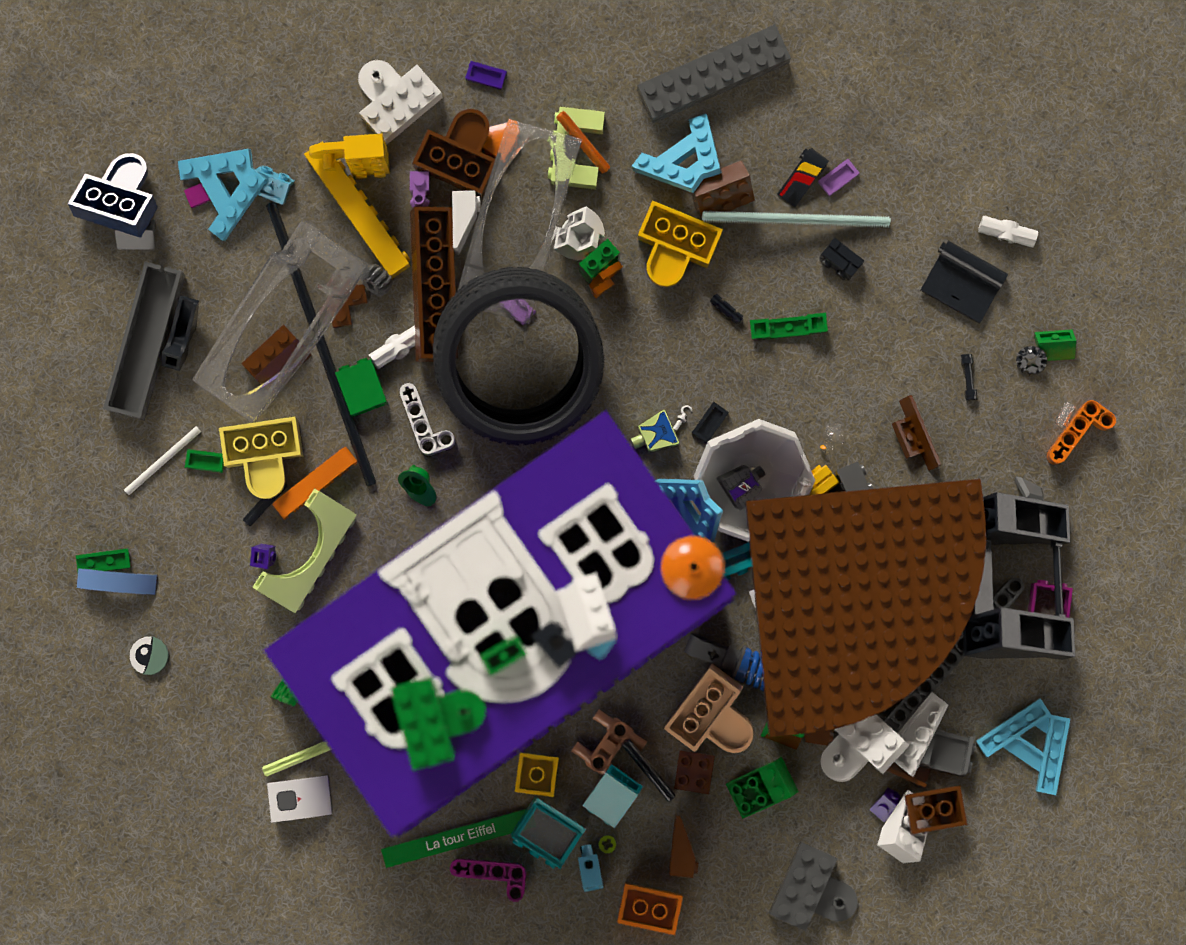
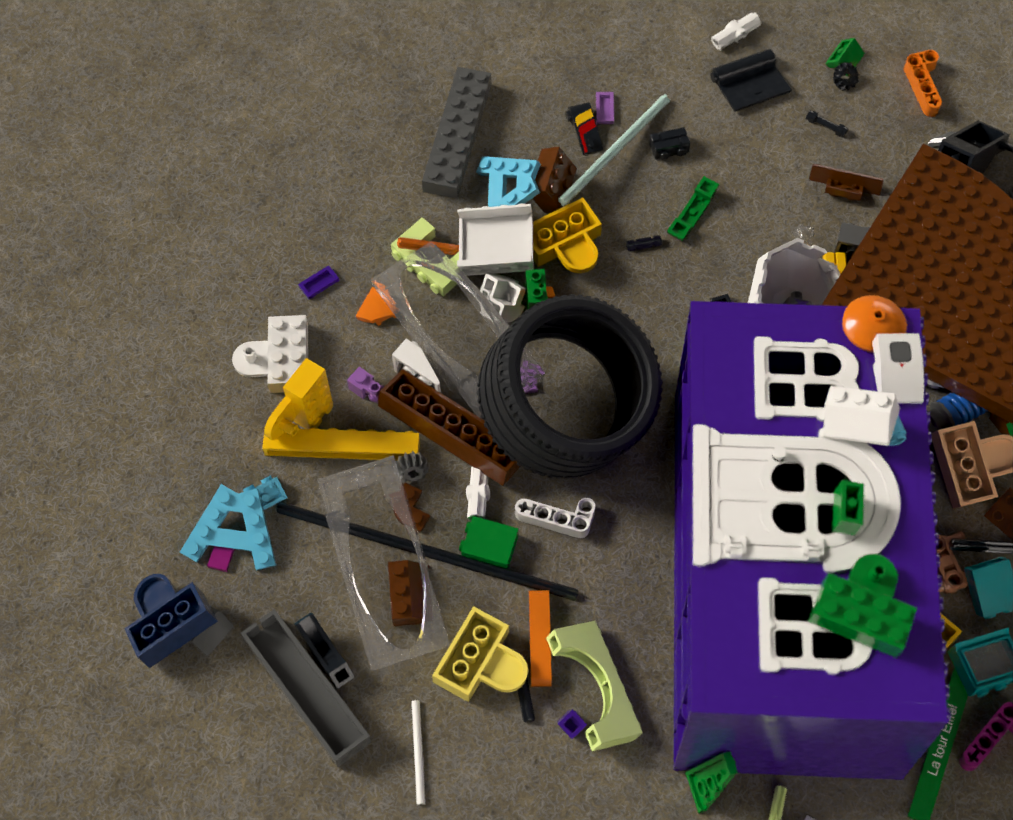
camera: 50 degrees left, 20 degrees down
(204, 461) = (447, 715): green tile -> none
(417, 485) = (608, 557): green piece -> none
(458, 155) = (364, 338): reddish brown brick -> none
(544, 638) = (856, 469): black brick -> none
(624, 190) = (495, 239): none -> white panel
(659, 614) = (899, 366): none -> white slope
(1065, 414) = (906, 86): clear pin -> none

